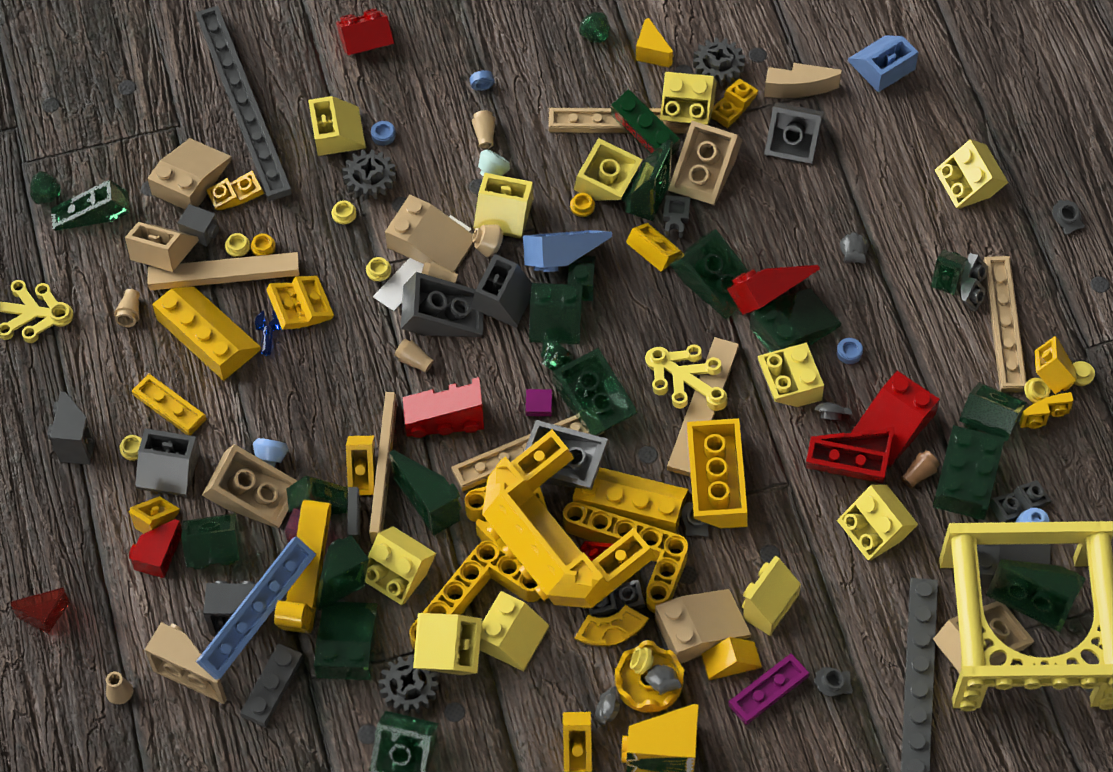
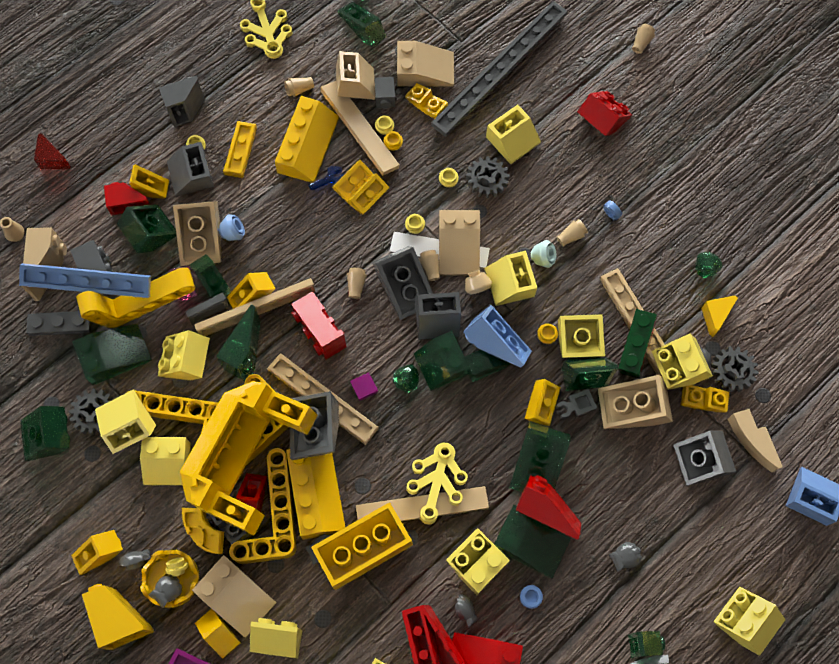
camera: 60 degrees right, 10 degrees up
(342, 571) = (151, 320): clear green slope -> none
(383, 133) = (530, 169): medium blue tile -> none
(593, 392) = (384, 422): clear green slope -> none

